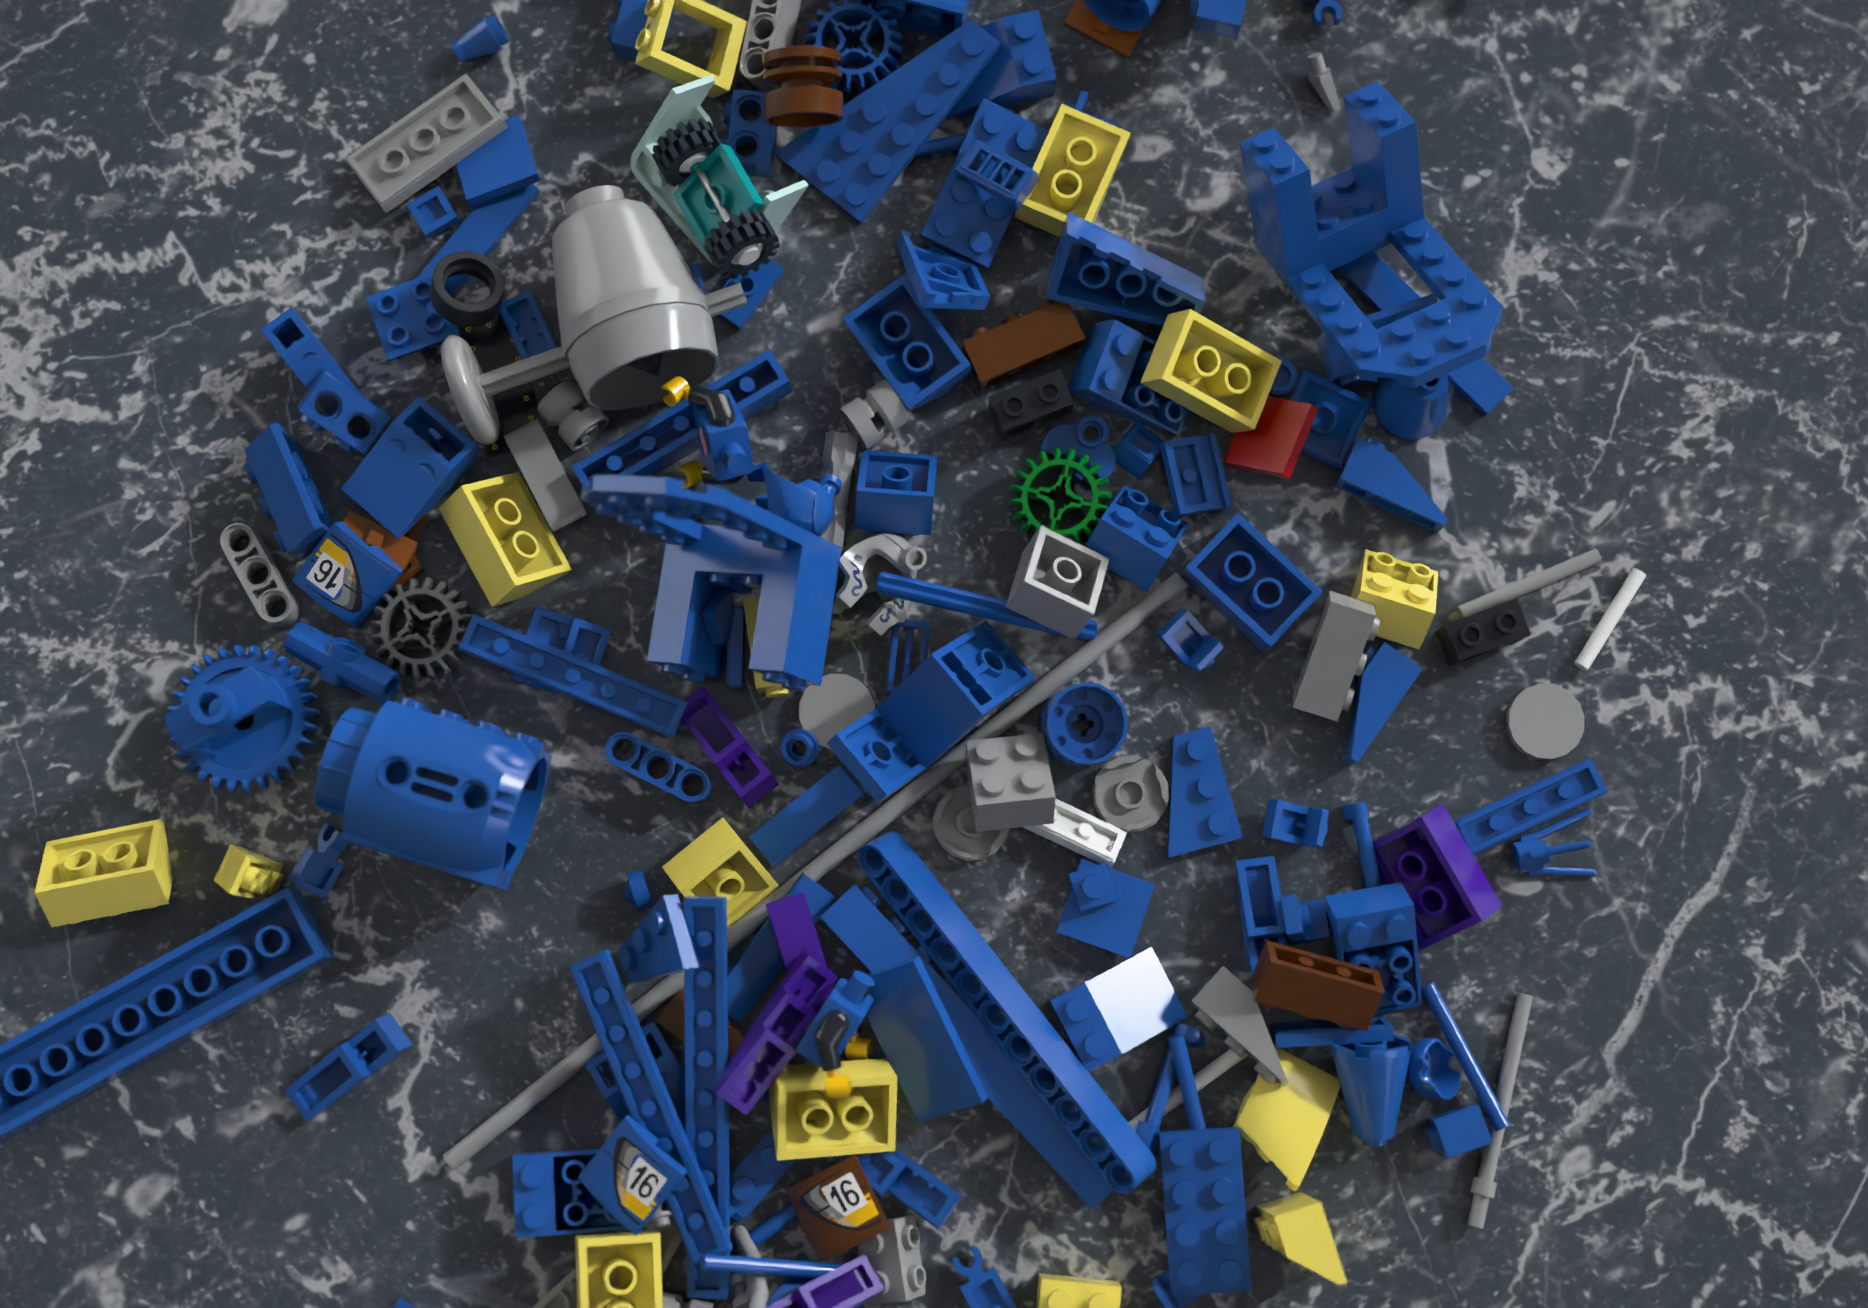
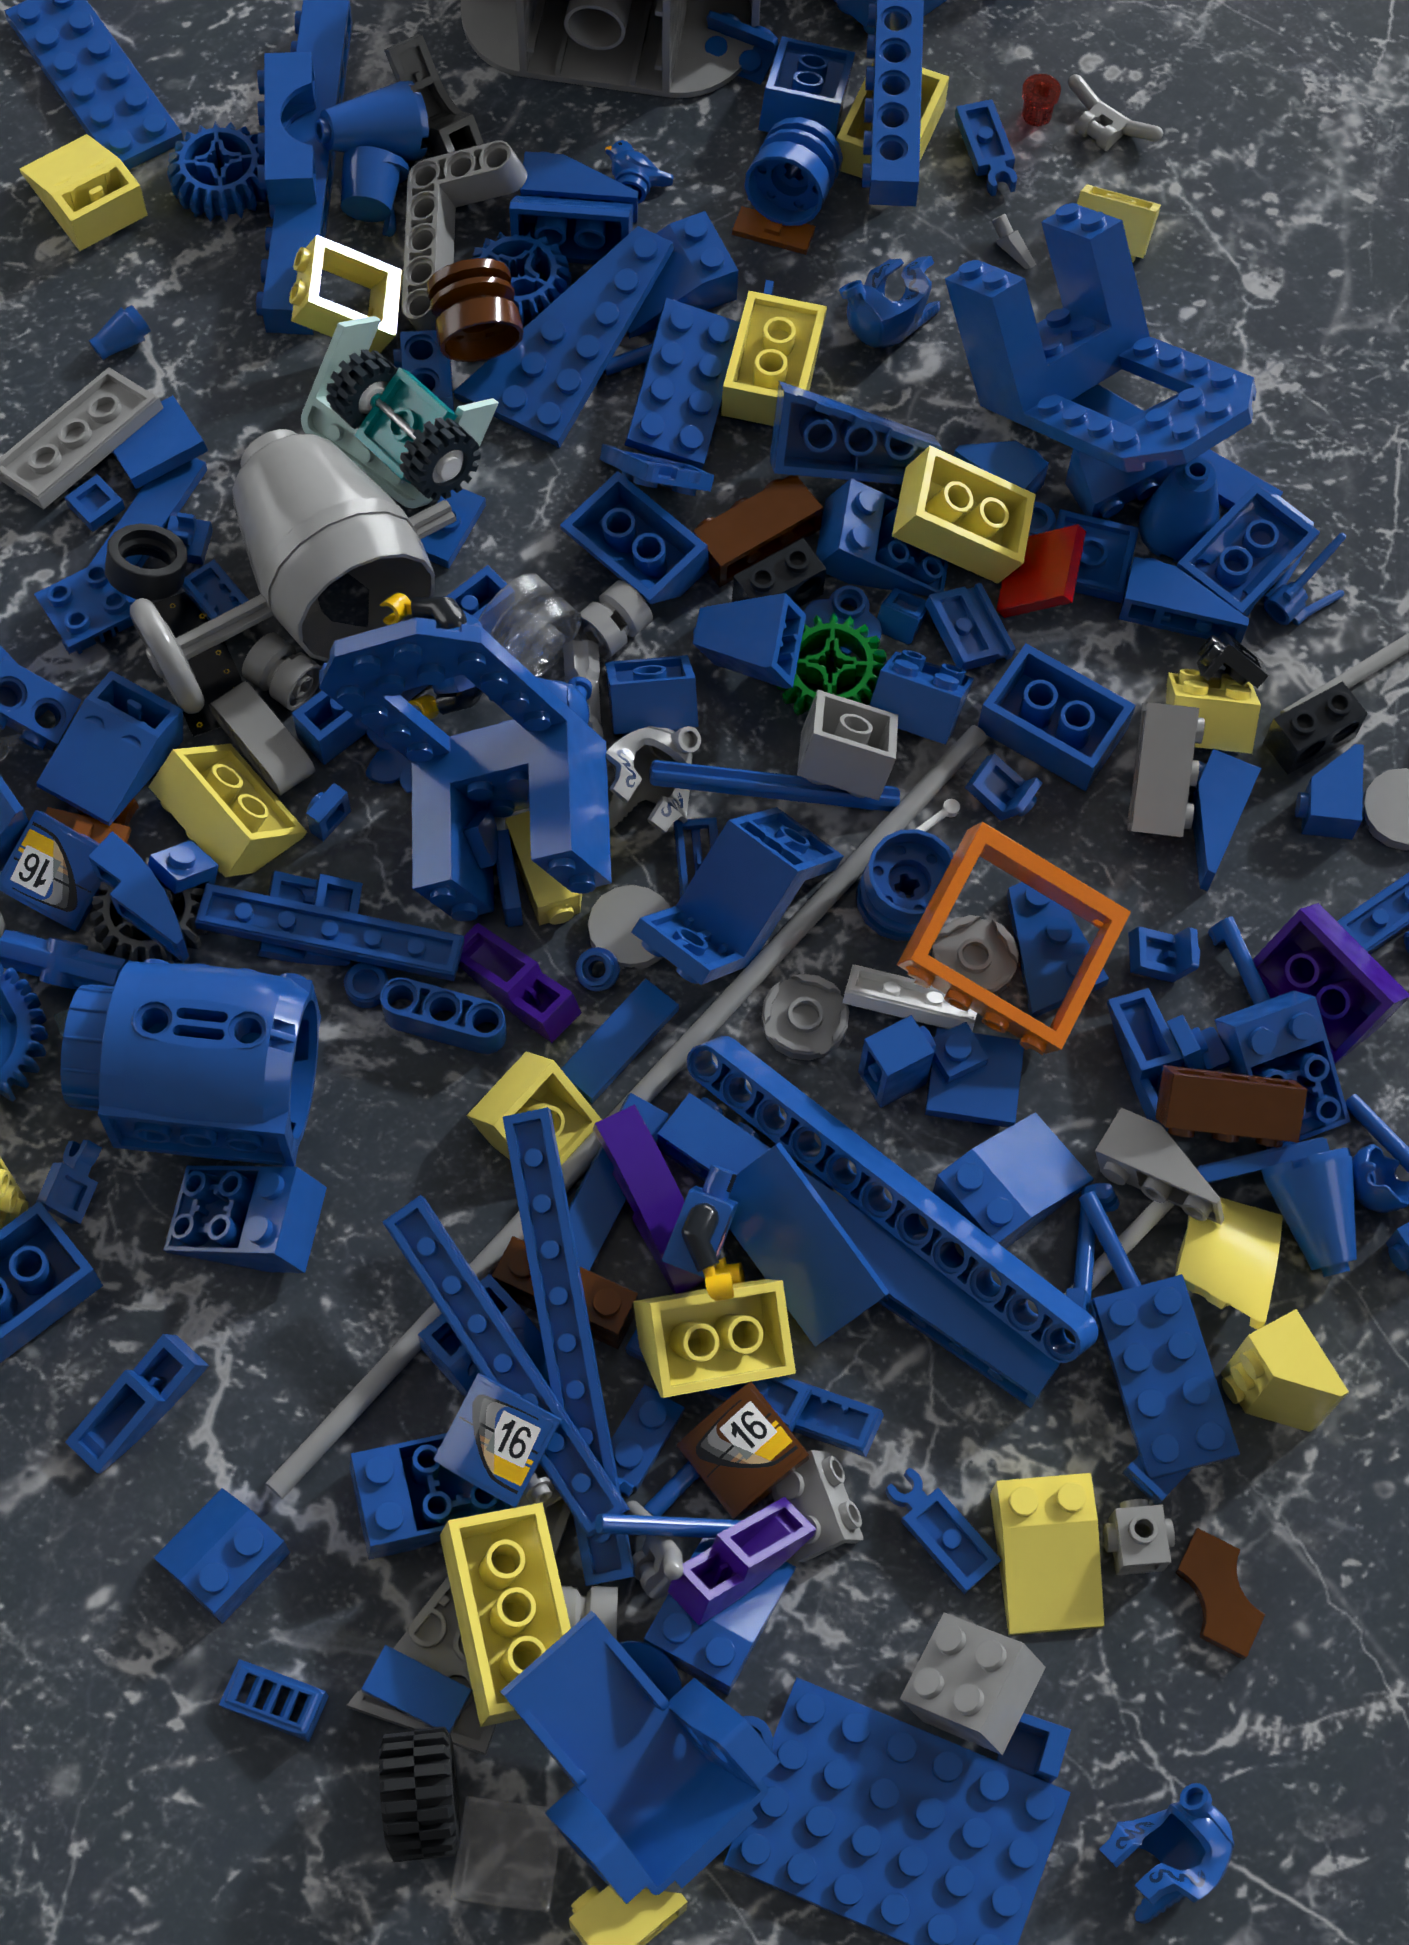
camera: 10 degrees left, 15 degrees down
(396, 1210) = (223, 1554): none -> blue slope
(413, 620) = (138, 894): none -> blue slope
(456, 596) = (183, 867): none -> blue bracket
(462, 921) = (247, 1216): none -> blue slope
(513, 261) = (193, 533): none -> blue tile
(590, 556) = (327, 811): none -> blue plate
(598, 725) = (364, 984): none -> blue tile
(637, 891) = (443, 1148): blue tile -> none
(659, 944) = (481, 1183): blue wing -> none
(774, 1032) = (633, 1257): dark purple slope -> none
(795, 414) = (531, 622): none -> clear wheel
(995, 461) = (753, 637): none -> blue slope
(1009, 782) = (840, 955): light grey brick -> none
(1022, 188) = (704, 375): blue slope -> none
(1039, 887) = (896, 1060): none -> blue brick
(1107, 760) = (1048, 880): none -> orange window
(1140, 647) = (950, 809): none -> white hinge
(1172, 140) = (888, 322): none -> blue piece
(1259, 321) = (1008, 461): none -> blue slope
(1424, 554) = (1238, 660): none -> black bracket
(1425, 76) = (1137, 215): none -> light yellow slope
(1467, 446) = (1249, 548): none -> blue slope
(1484, 703) = (1334, 797): none -> blue slope
(1490, 501) = (1287, 602): none -> blue plant

